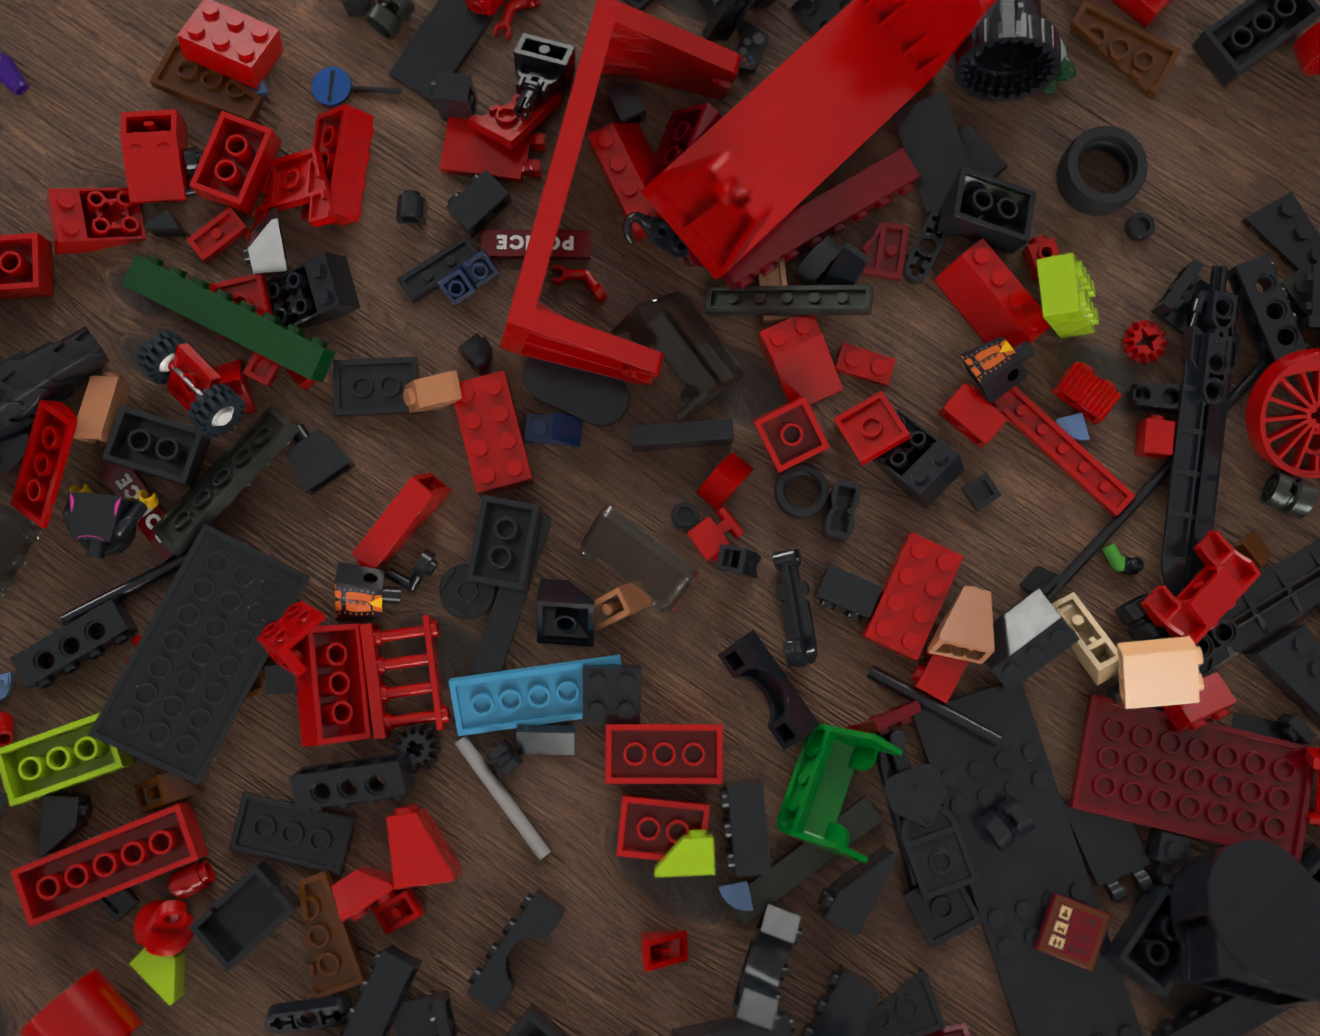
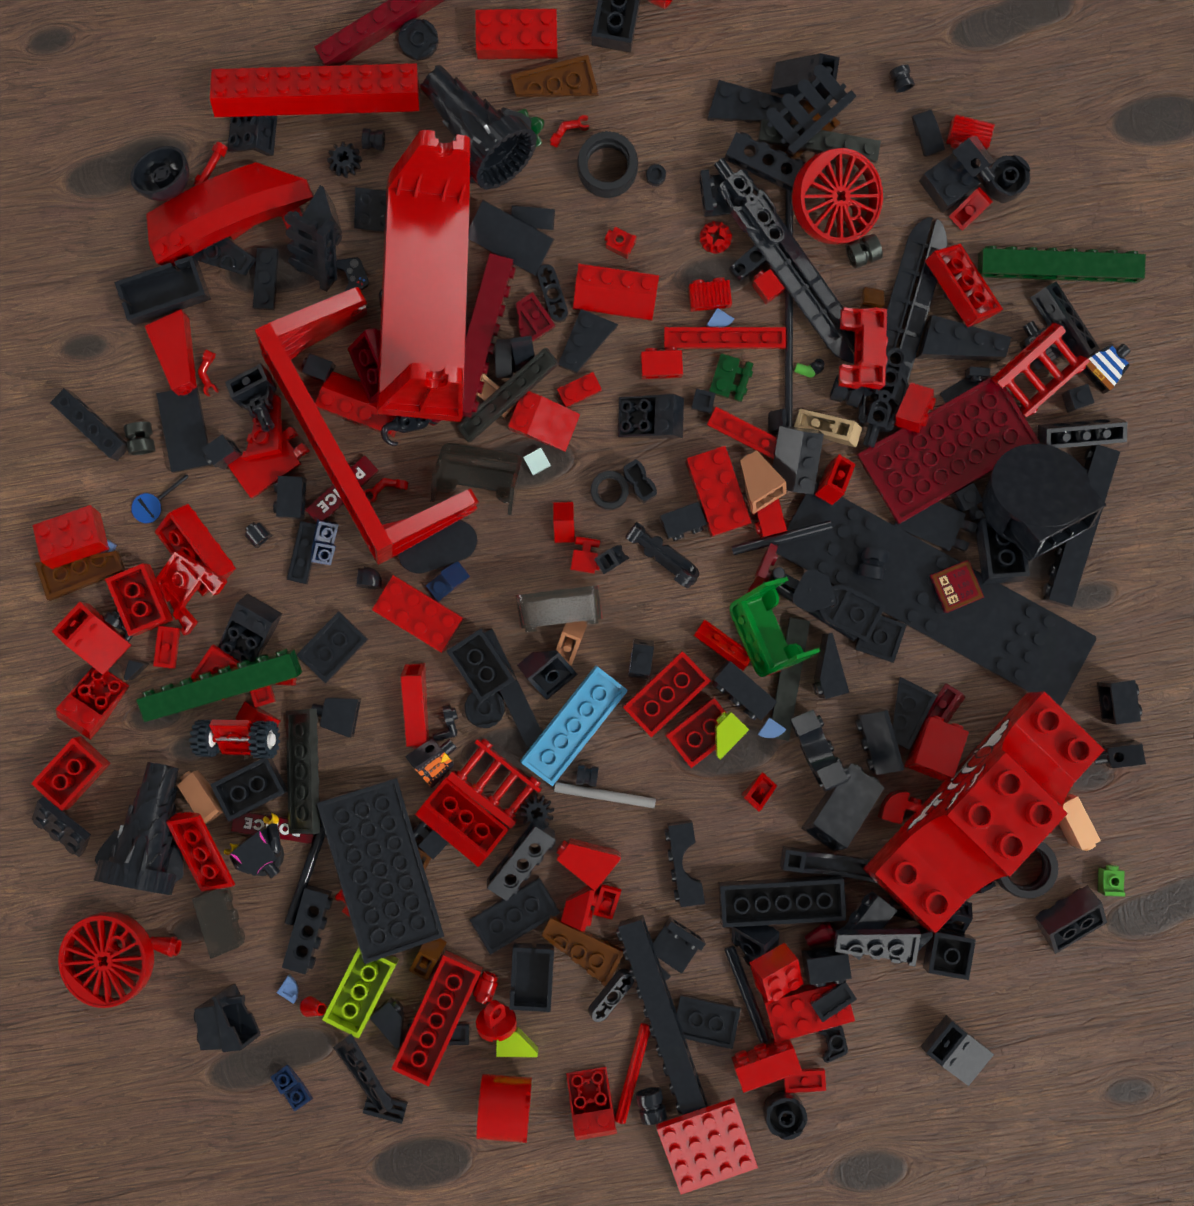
camera: 45 degrees left, 5 degrees up
(266, 246) = (201, 628): slope -> none
(281, 636) = (414, 817): red bracket -> none
(432, 392) = (367, 622): nougat slope -> none
(545, 739) = (599, 744): black tile -> none
(611, 694) = (611, 689): black plate -> none
(672, 692) = (641, 658): none -> black torso
(682, 435) = (519, 520): black piece -> none
(685, 516) = (560, 561): black plate -> none
(755, 395) = (537, 461): none -> light aqua tile
(769, 761) = (722, 644): none -> red plate
(789, 715) = (711, 612): black arch -> none
(790, 434) = (575, 465): red brick -> none
(872, 428) = (615, 421): red tile -> none
(919, 320) = (586, 337): none -> black wing
(988, 209) = (567, 245): black slope -> none
(993, 560) = (743, 431): none -> red plate
(997, 366) = (650, 326): black torso -> none
(1026, 487) = (725, 374): none -> dark green plate
(1046, 698) = (835, 479): none -> red brick
(1067, 295) = (652, 256): lime brick -> none
(1074, 101) = (557, 137): none -> red arm
(1159, 672) = (879, 413): light nougat brick -> none

